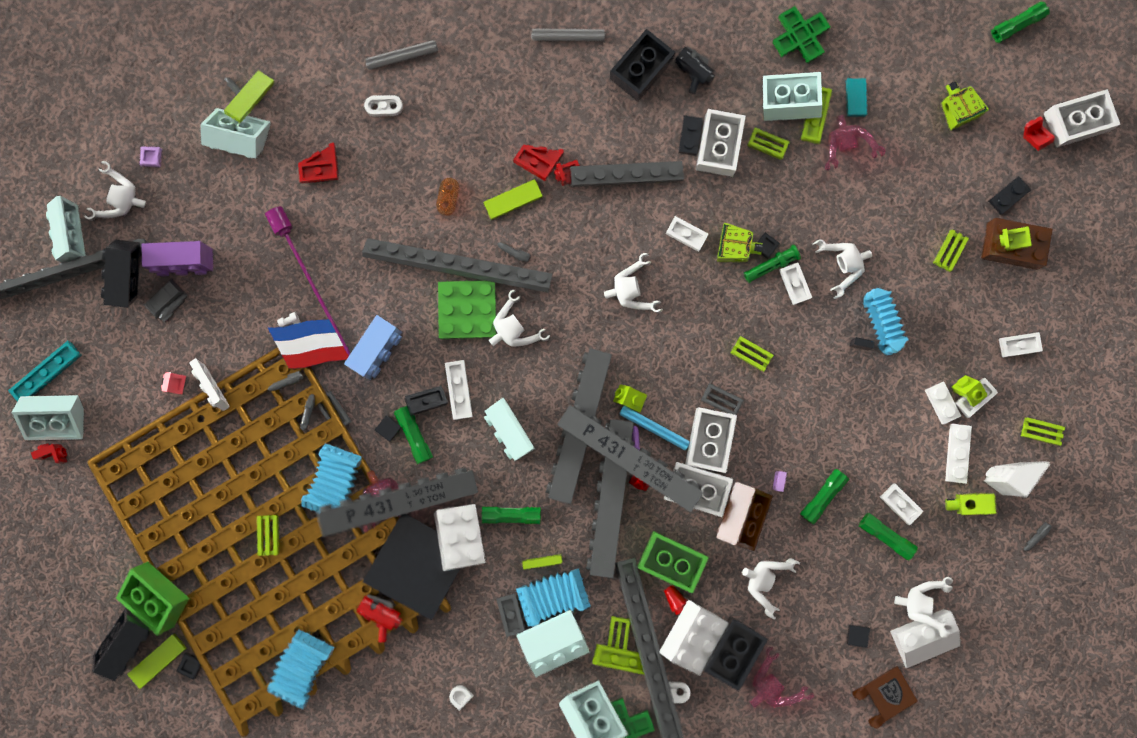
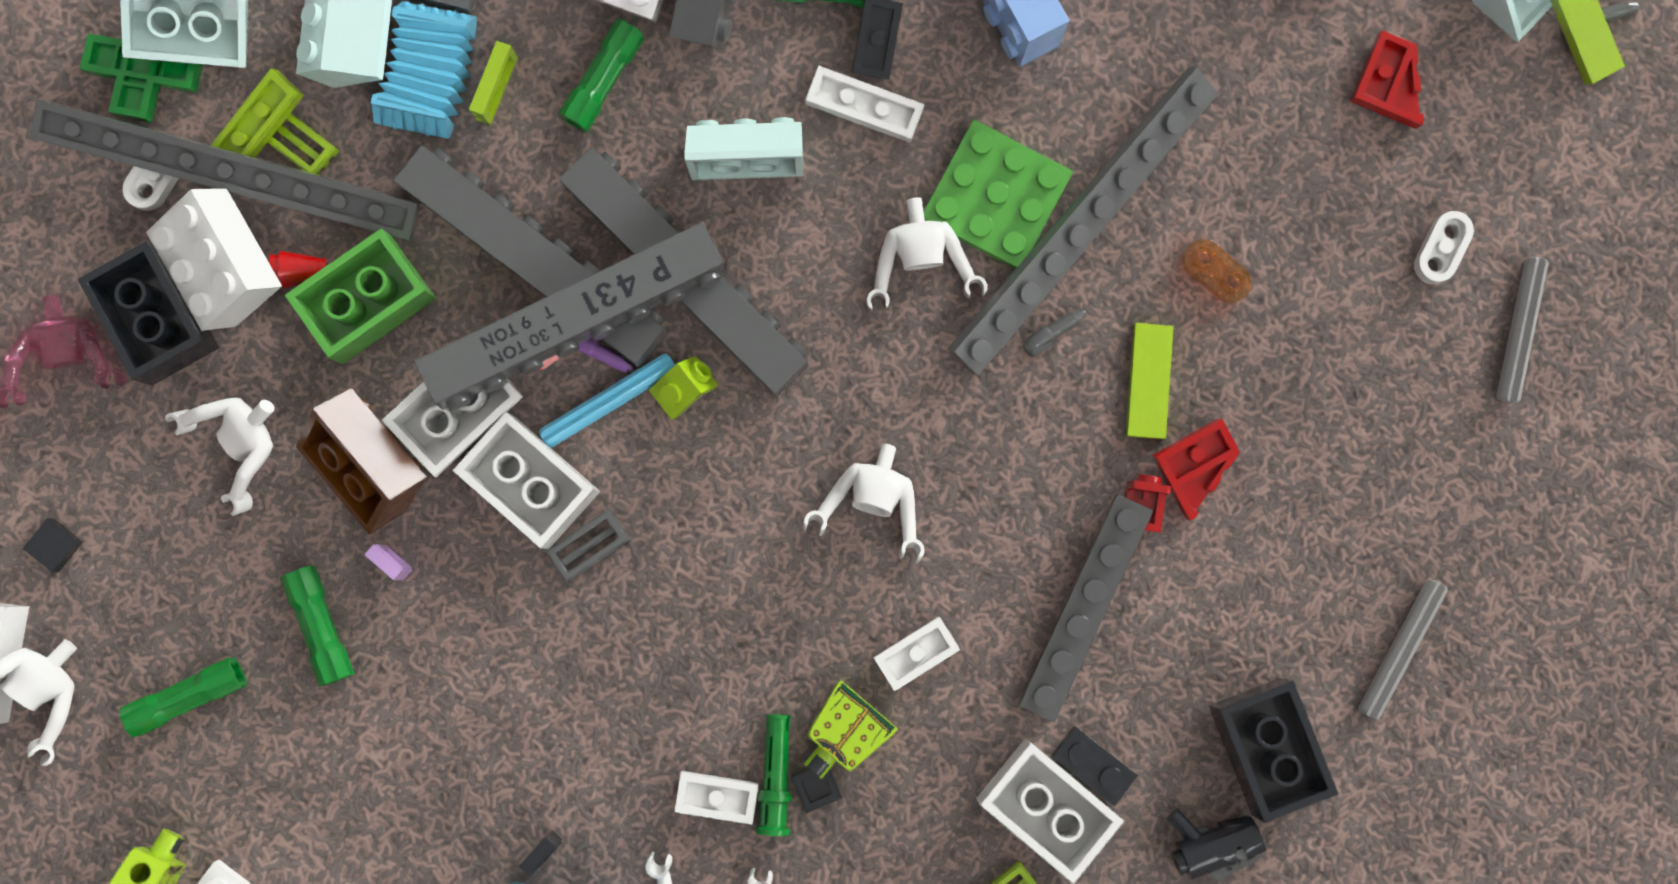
camera: 115 degrees right, 0 degrees up
(755, 347) = (609, 662): lime tile -> none
(901, 504) = (223, 754): white plate -> none

